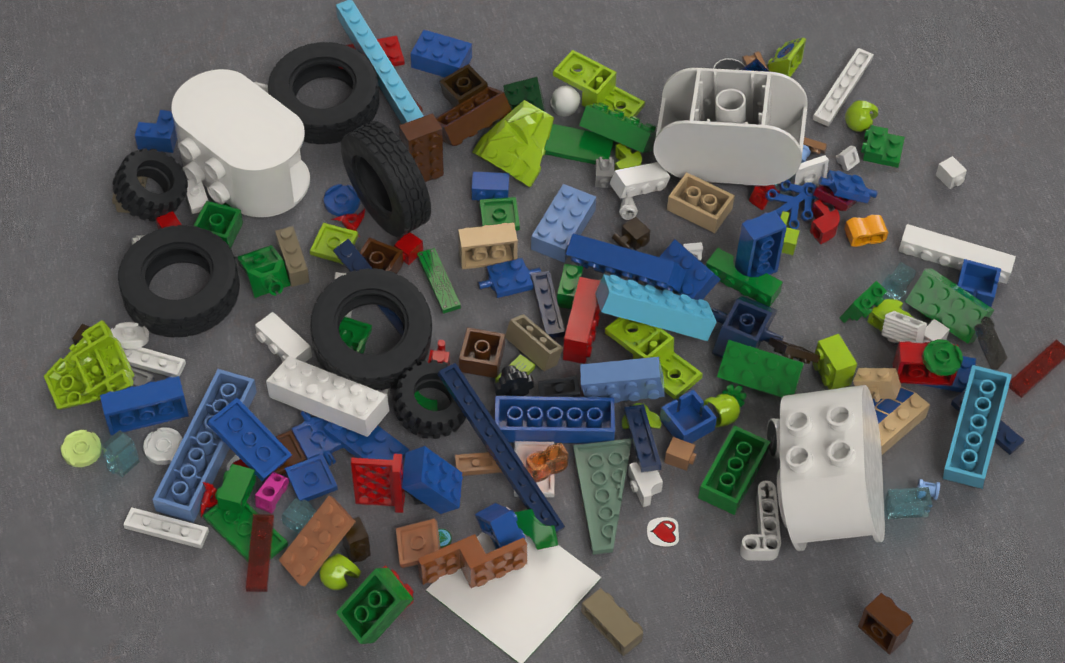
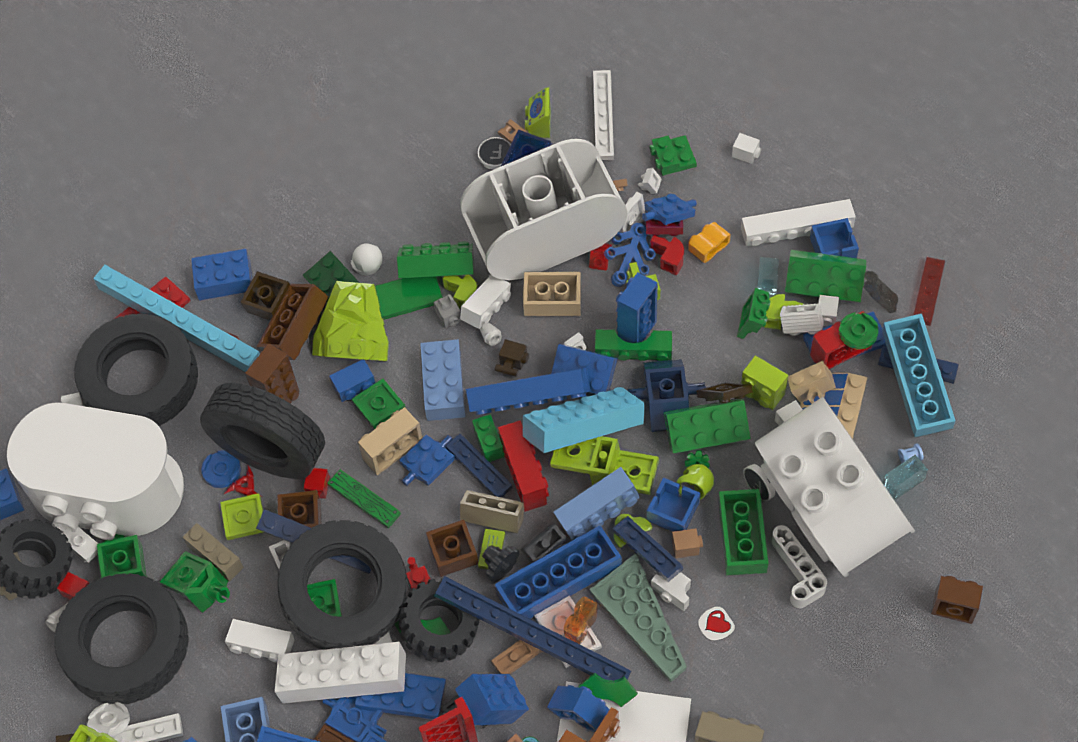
camera: 25 degrees left, 5 degrees up
(596, 84) = (387, 228): lime bracket -> none
(859, 117) = (636, 135): lime helmet -> none

